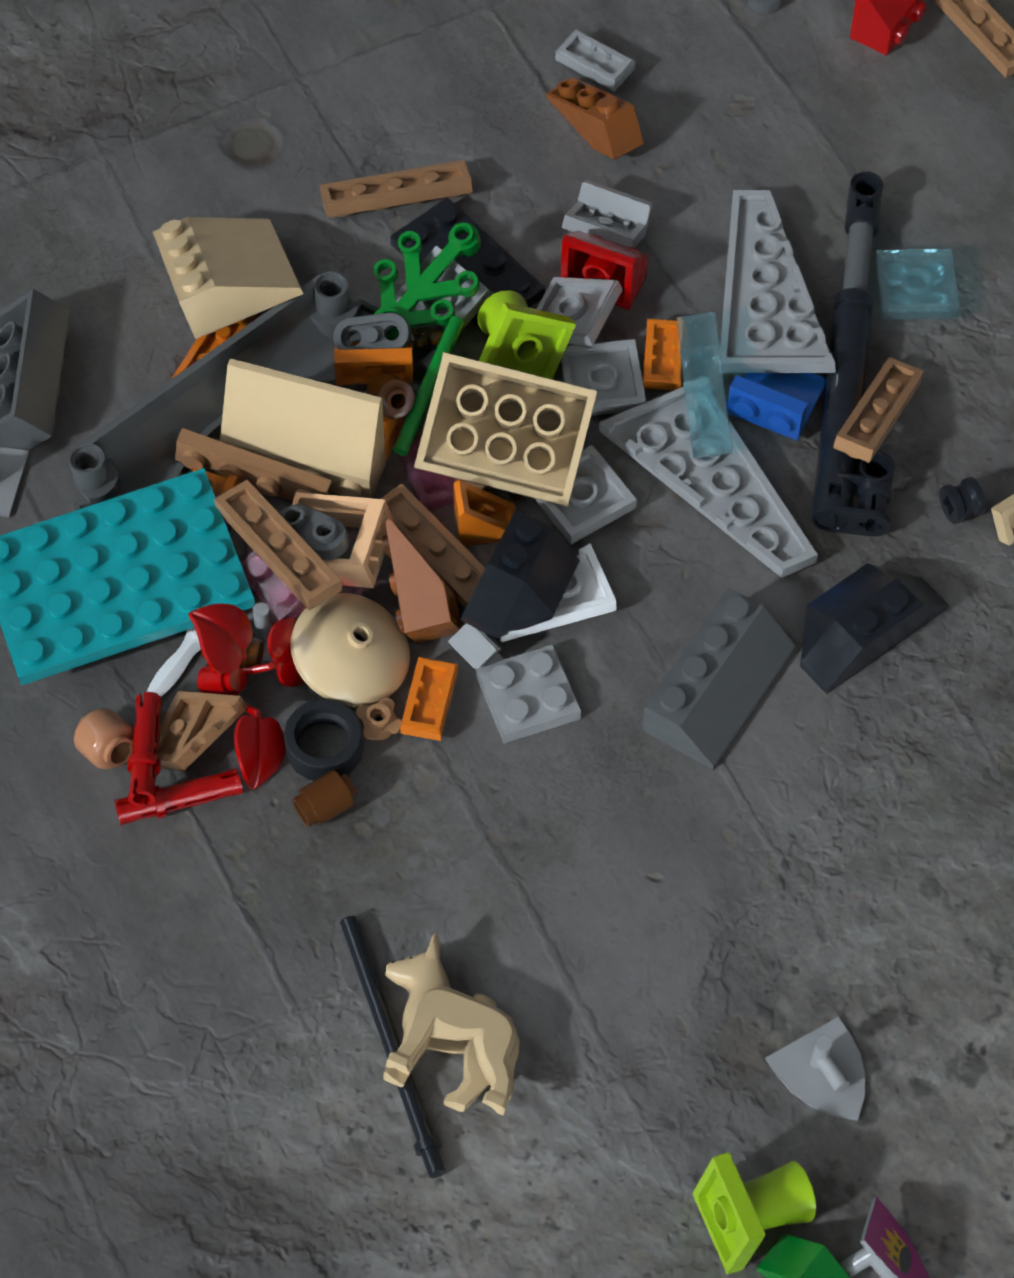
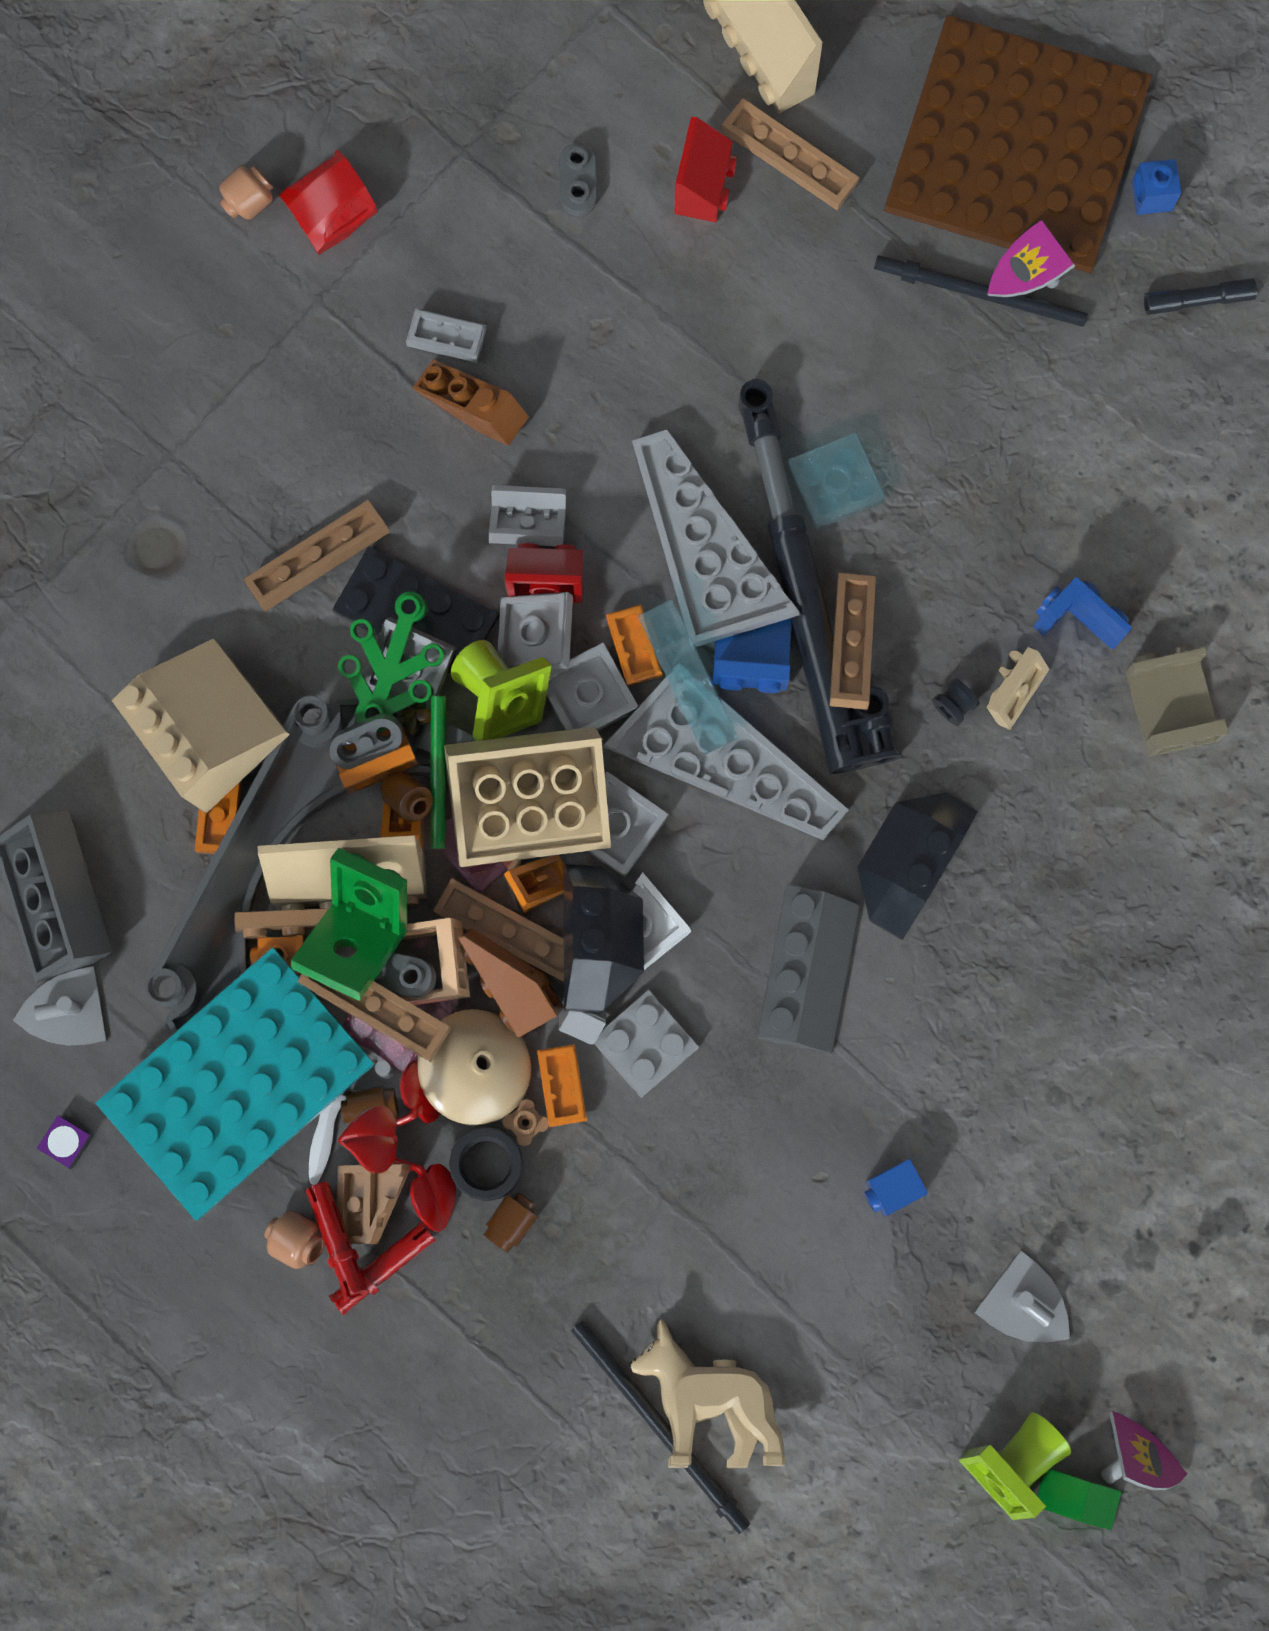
camera: 20 degrees left, 20 degrees up
(305, 467) = (365, 915): none -> green bracket
(728, 904) = (895, 1188): none -> blue brick

